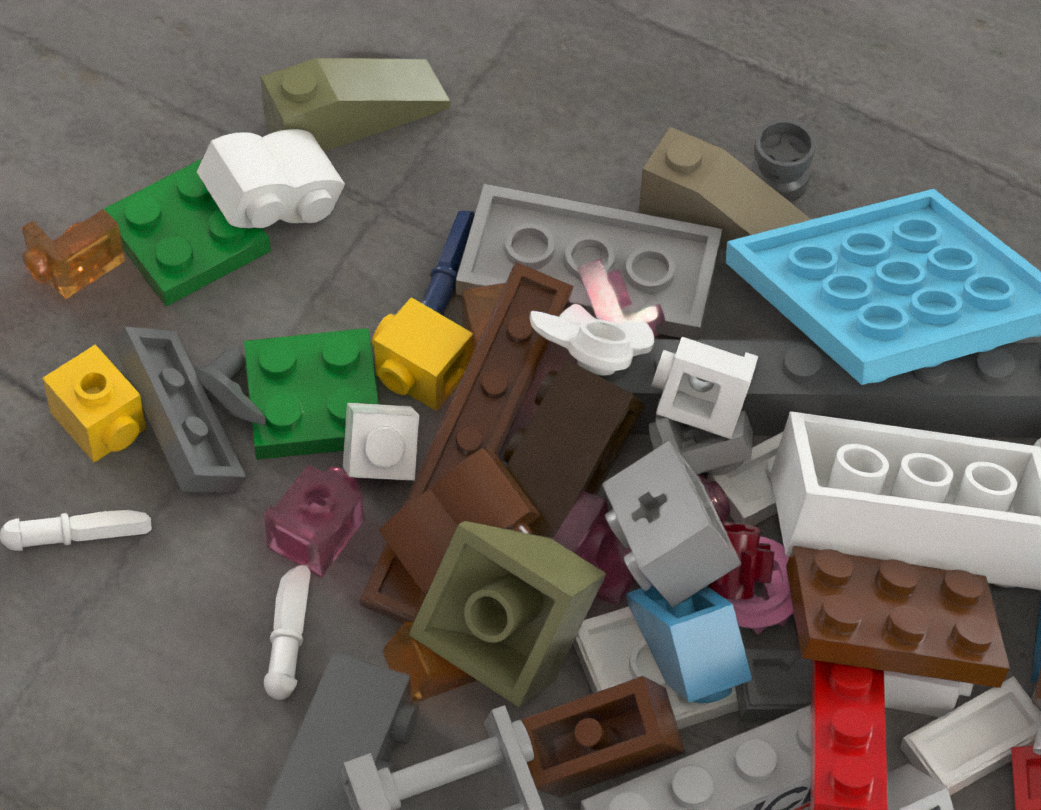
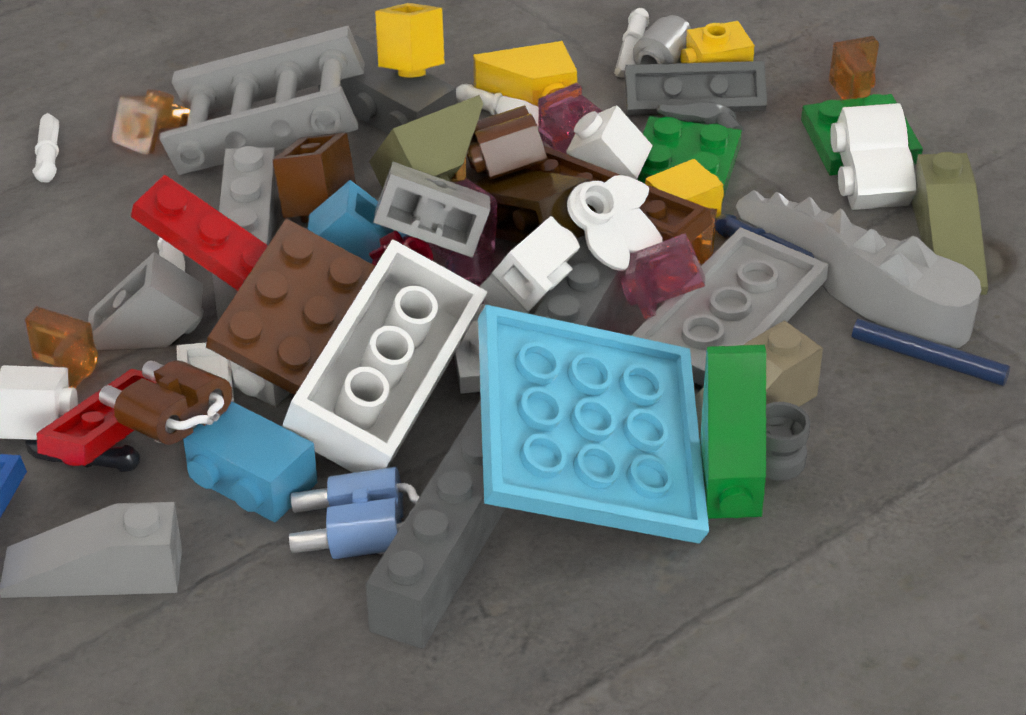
camera: 115 degrees right, 15 degrees down
(92, 474) = (662, 42): none -> light grey brick
(232, 597) = (525, 71): none -> yellow slope
(311, 695) = (410, 38): none -> yellow brick
(486, 142) = (874, 275): none -> light grey animal
(559, 87) = (931, 352): none -> dark blue bar
(845, 160) = (734, 431): none -> green slope

